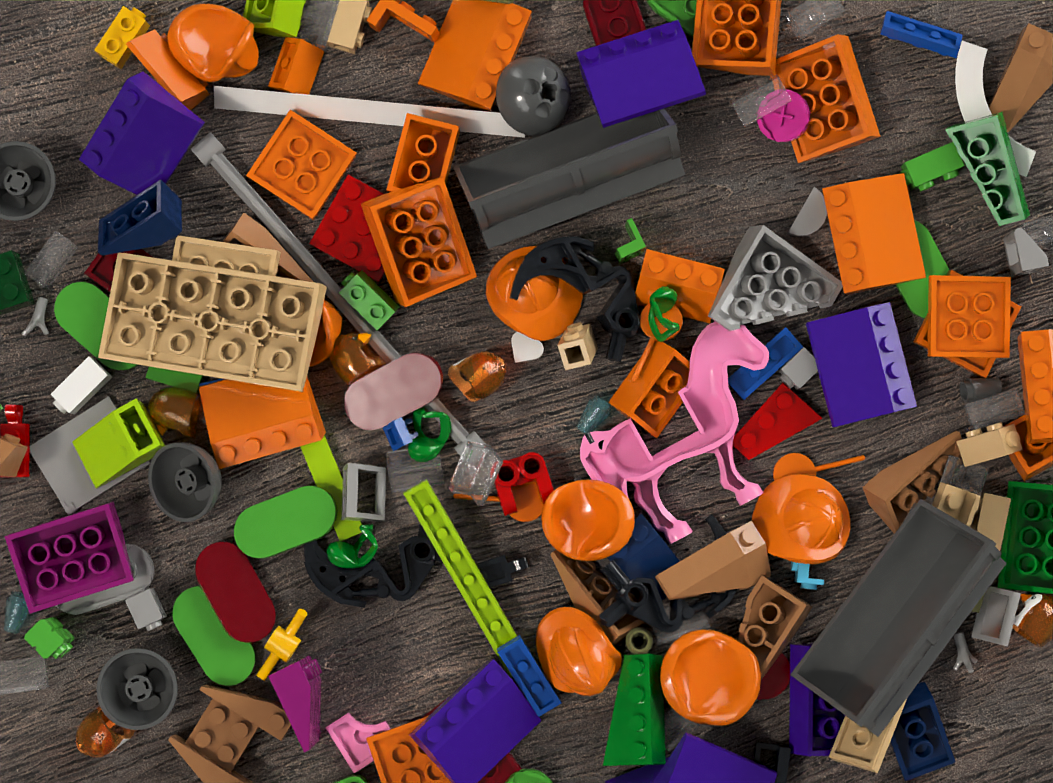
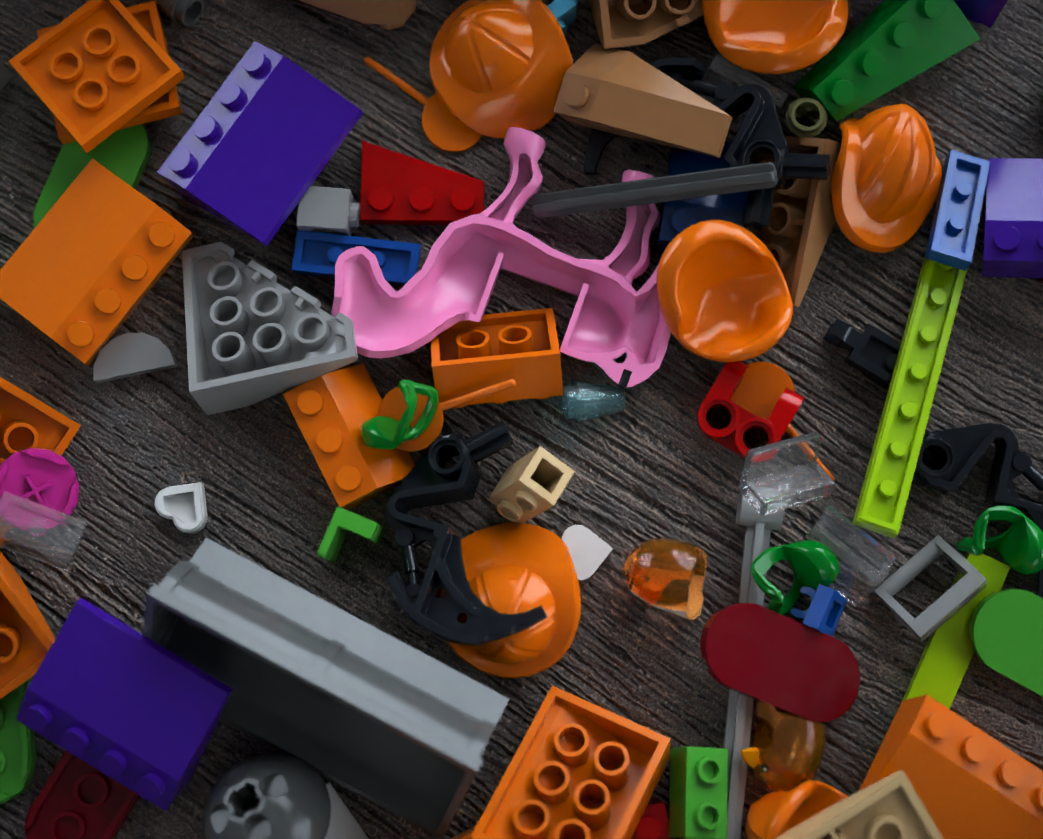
camera: 135 degrees left, 5 degrees down
(667, 532) = (655, 190): none -> dark grey axle
(714, 179) = (184, 506): none -> white tile

